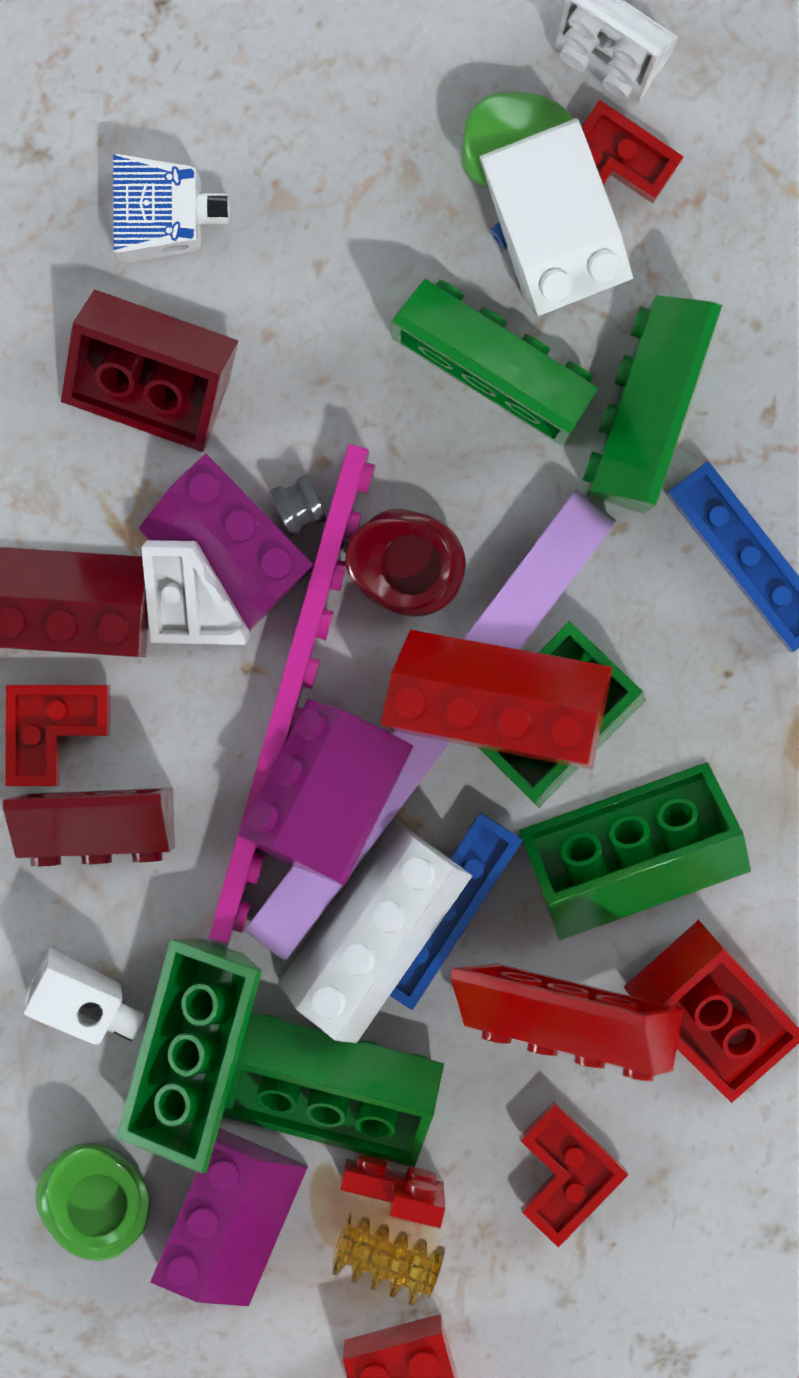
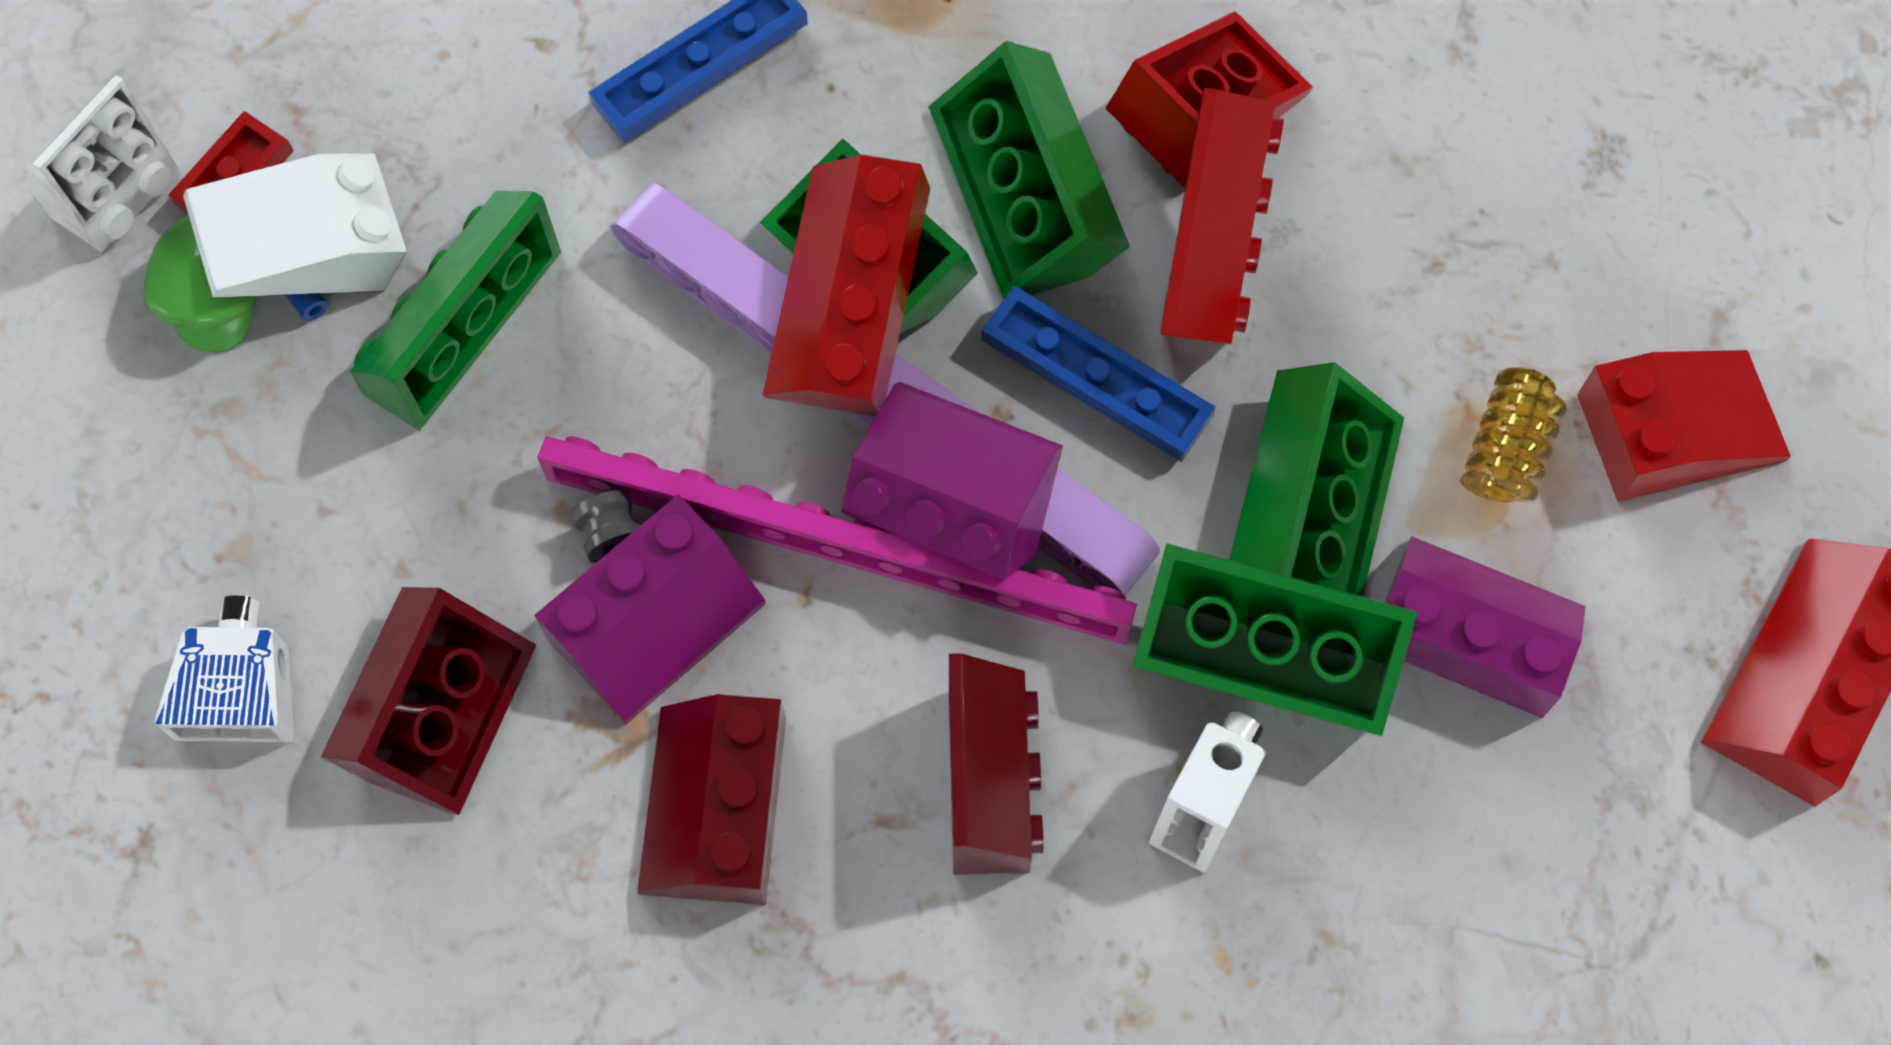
camera: 85 degrees left, 20 degrees down
(37, 720) = (859, 845): red plate -> none
(92, 1202) = (1467, 784): bright green piece -> none
(187, 597) = (711, 651): white wing -> none
(372, 933) = (1123, 443): white slope -> none
(406, 562) = (684, 404): dark red piece -> none
(411, 1195) = (1429, 408): red plate -> none
(580, 1178) = (1403, 234): red plate -> none
(652, 401) = (518, 136): green slope -> none

